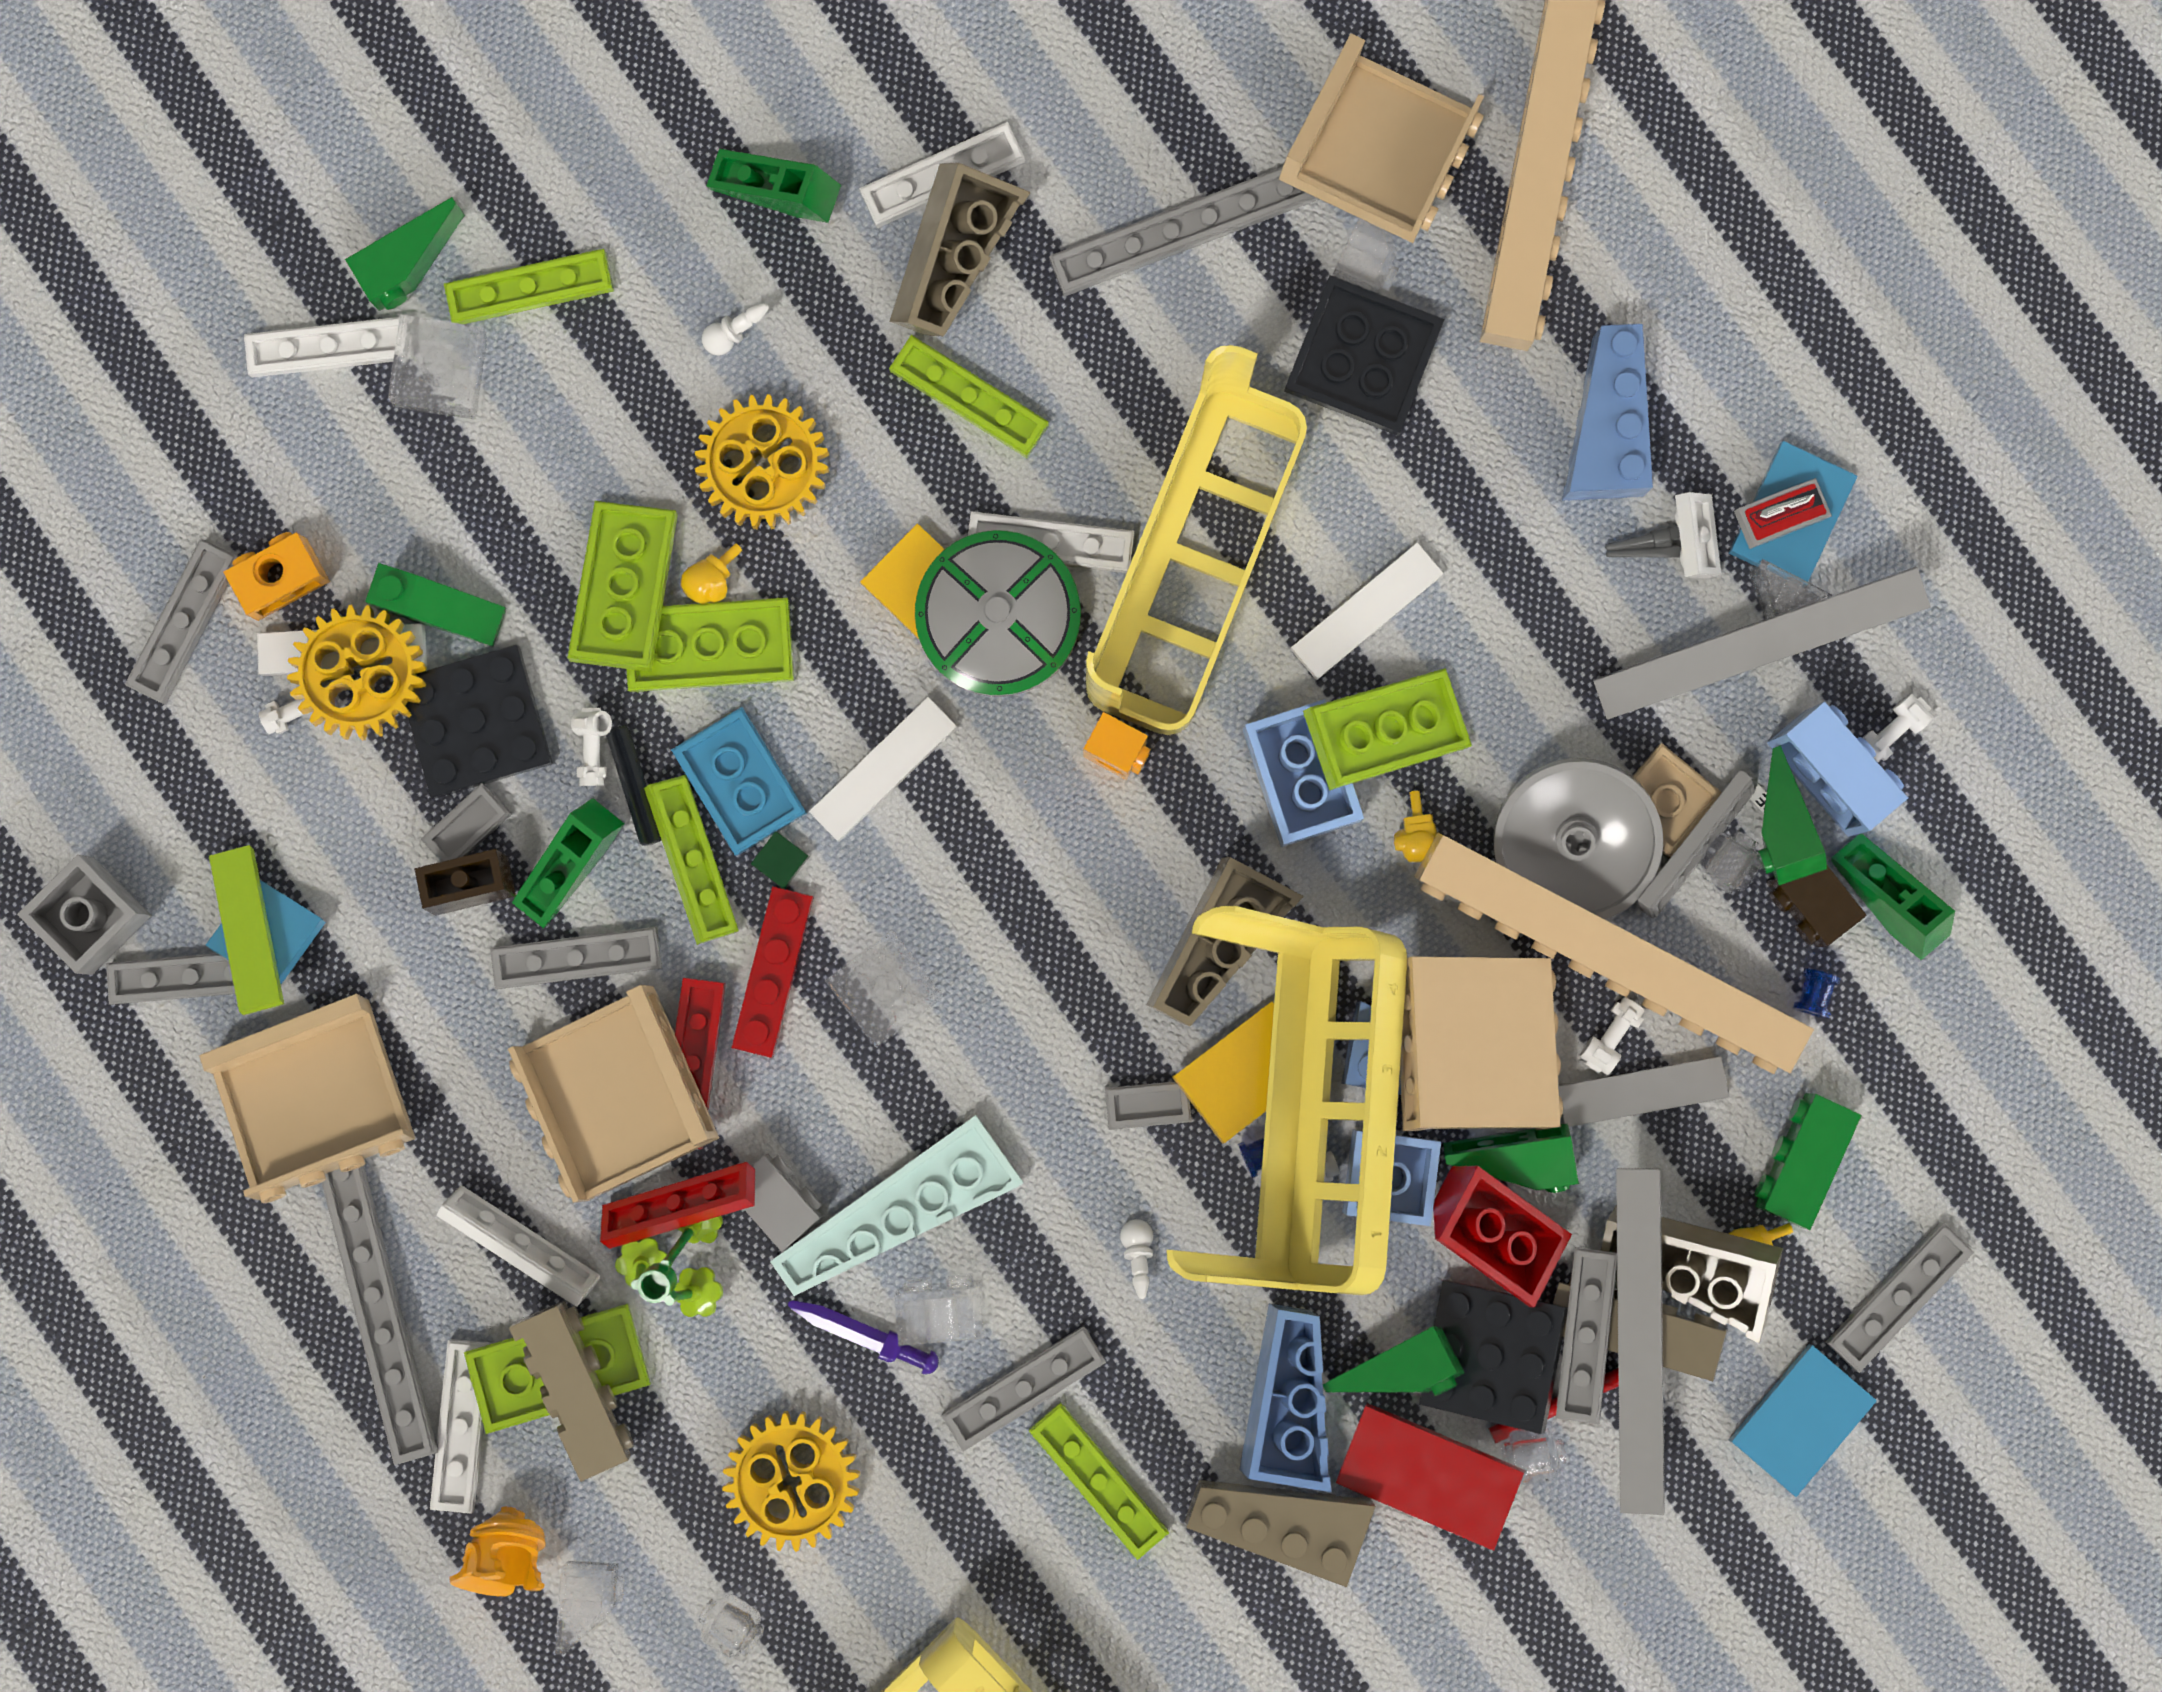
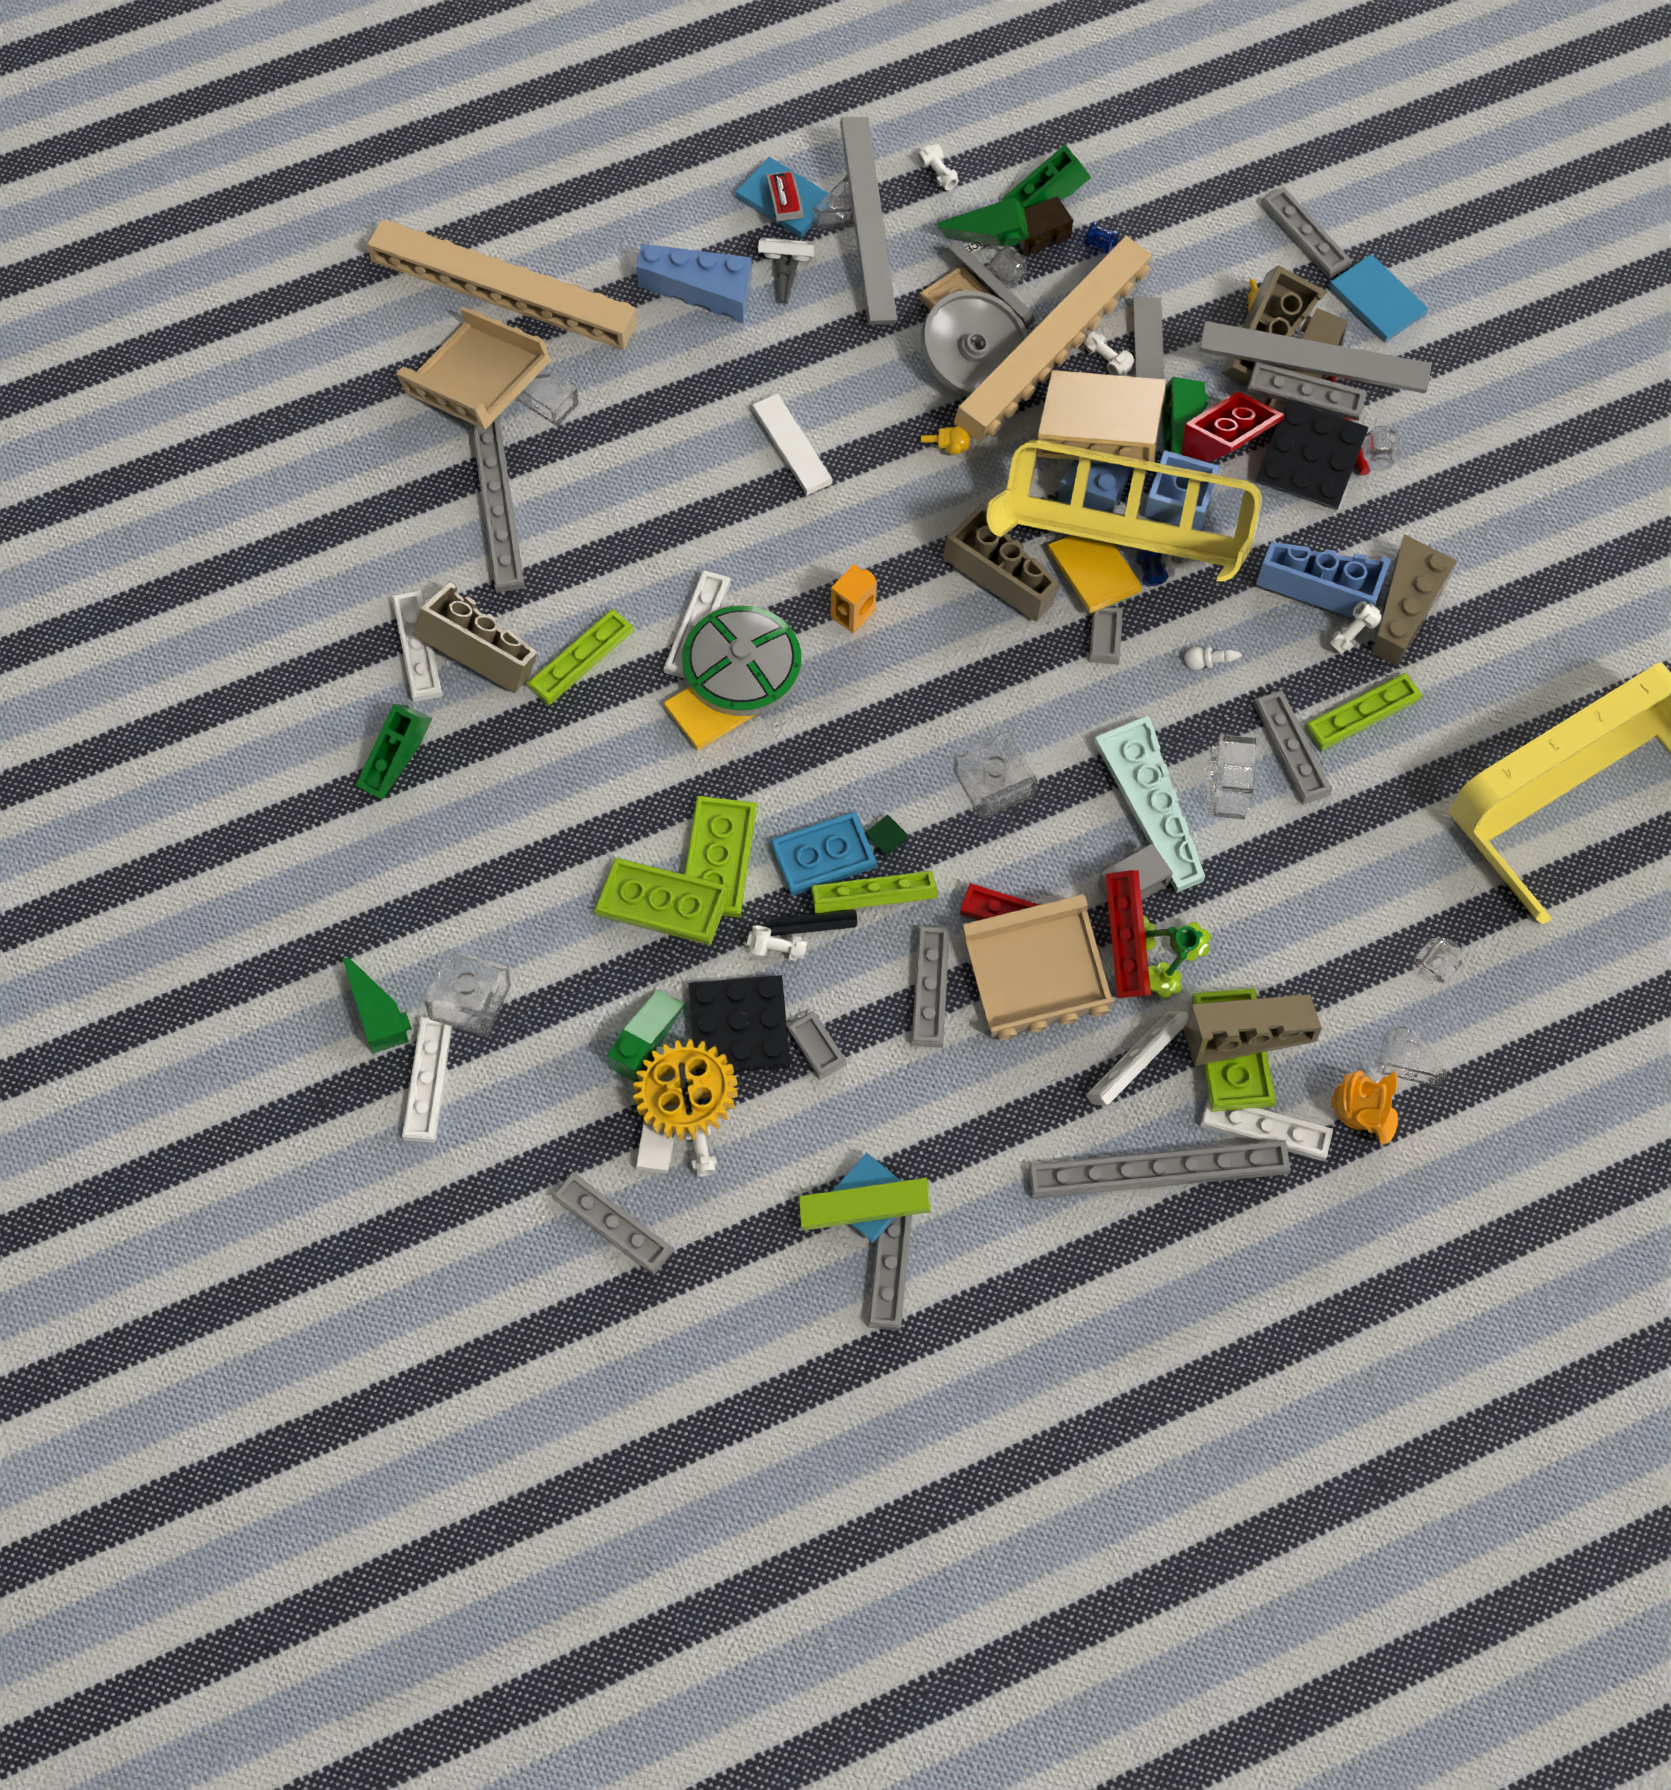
camera: 80 degrees left, 20 degrees down
(84, 914) = (828, 1325): light grey brick -> none
(300, 575) = (589, 1124): light orange brick -> none
(310, 1097) = (1003, 1187): tan panel -> none
(465, 882) = (860, 1042): dark brown brick -> none
(529, 287) = (421, 931): lime tile -> none
(567, 861) = (859, 974): green slope -> none
(707, 578) = (670, 845): yellow piece -> none
(720, 337) = (494, 809): white bar -> none
(754, 1492) = (1345, 928): yellow gear -> none
(772, 972) = (967, 855): red plate -> none
(785, 490) = (620, 781): yellow gear -> none
(866, 1336) = (1248, 826): dark purple sword -> none
(883, 769) = (835, 757): white tile -> none
(1222, 395) = (813, 565): light yellow piece -> none
(1230, 1461) = (1365, 615): none -> white bar
(1295, 781) = (896, 493): light blue brick -> none
(1364, 355) = (616, 412): black plate -> none
(1387, 728) = (877, 436): lime tile -> none
(1414, 1365) = (1312, 497): green slope -> none
(1430, 1476) = (1388, 505): red tile -> none
(1806, 1160) = (1210, 261): green brick -> none
(1839, 769) = (958, 190): light blue brick -> none

